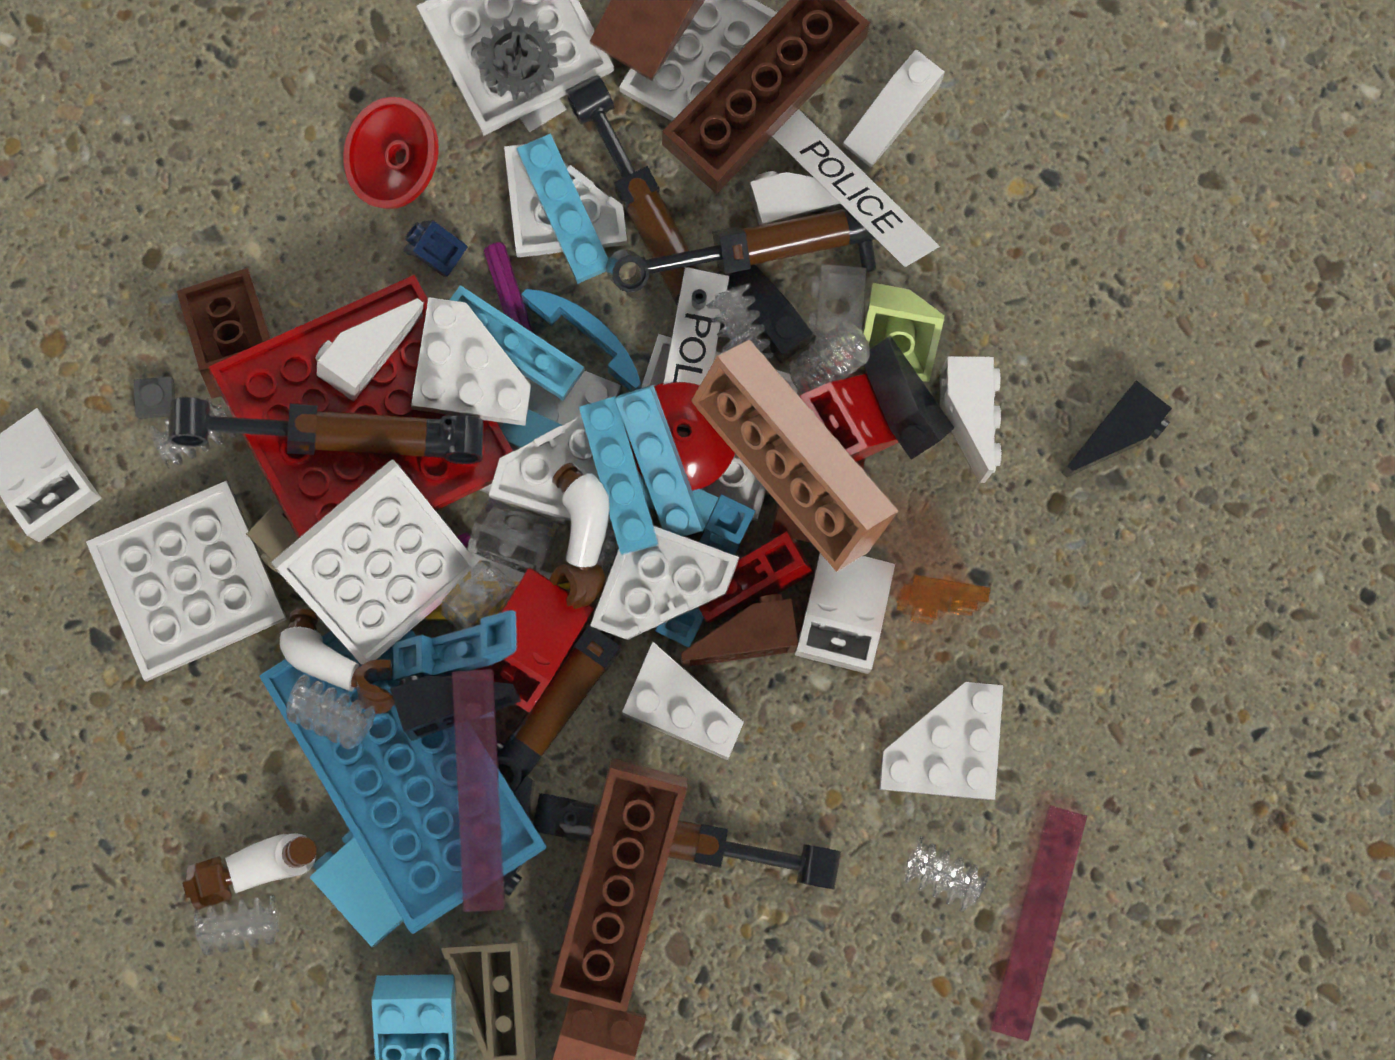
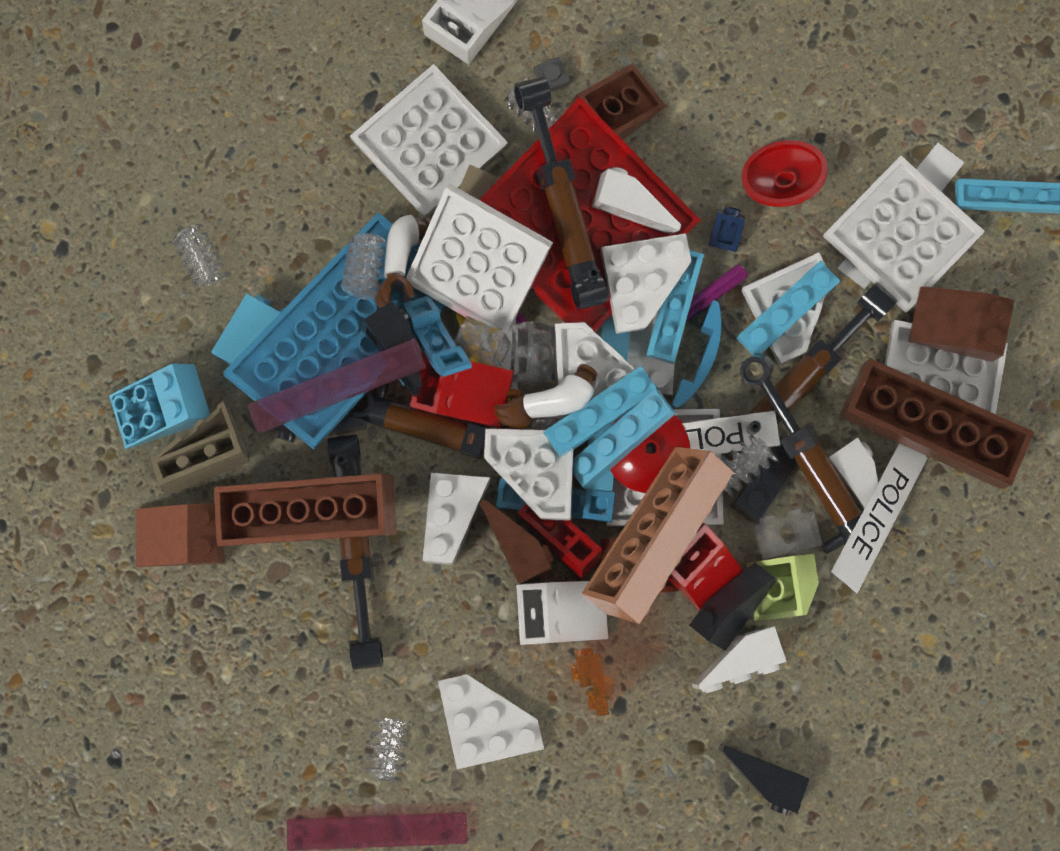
camera: 75 degrees right, 0 degrees up
(257, 864) = (242, 251): piece -> none
(504, 55) = (893, 227): dark grey gear -> none
(831, 358) = (744, 540): clear piece -> none
(894, 108) = (955, 528): white slope -> none

